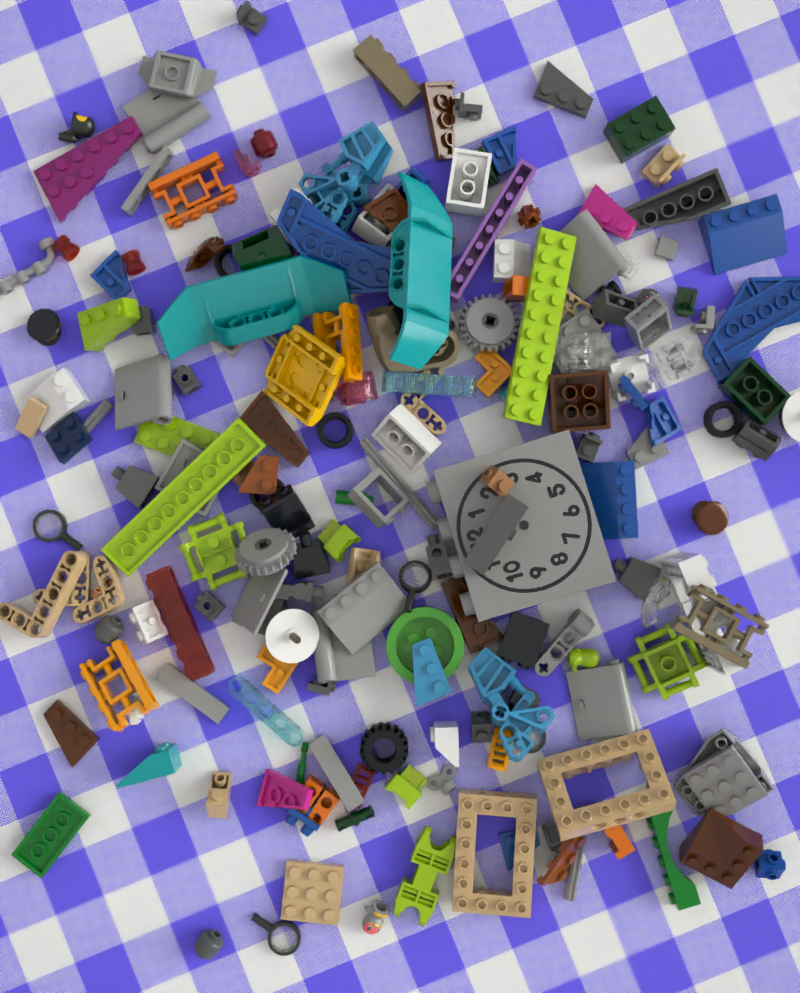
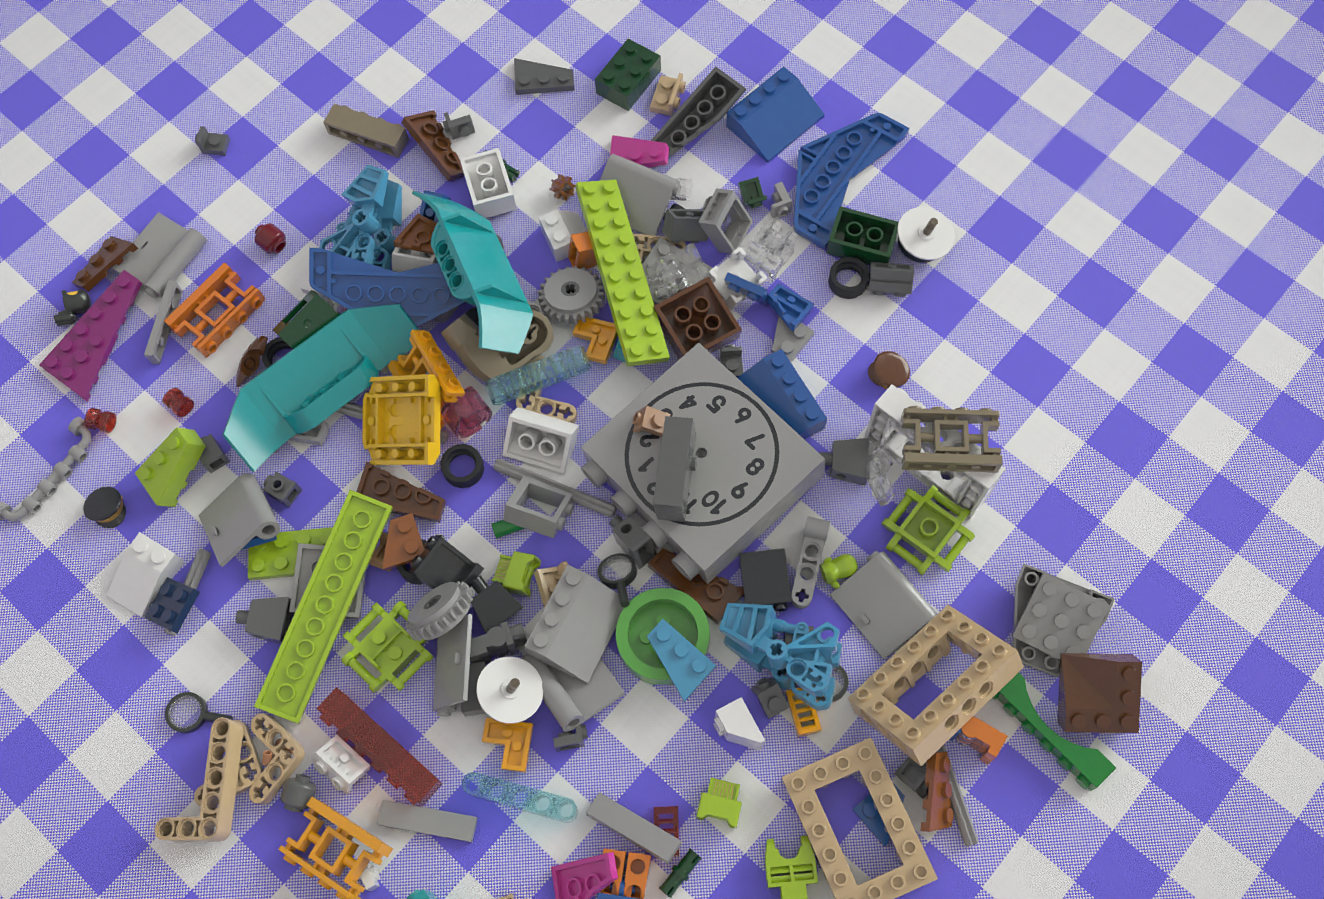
camera: 20 degrees left, 20 degrees down
(31, 417) = (122, 603): tan tile -> none
(112, 276) = (157, 423): blue wing -> none
(117, 96) = (97, 269): none -> reddish brown wing
(176, 74) = (156, 216): light grey piece -> none
(216, 605) = (410, 716): dark grey brick -> none
(243, 162) = (260, 266): clear pink bracket -> none
(302, 765) = (590, 841): green piece -> none
(384, 764) = (670, 750): black tyre -> none
(444, 781) = (760, 778): light grey piece -> none
(490, 228) = (529, 209): medium lavender brick -> none
(503, 150) = (509, 145): blue wing -> none
(666, 248) = (709, 159): light grey tile -> none
(769, 865) = (1161, 688): blue brick -> none

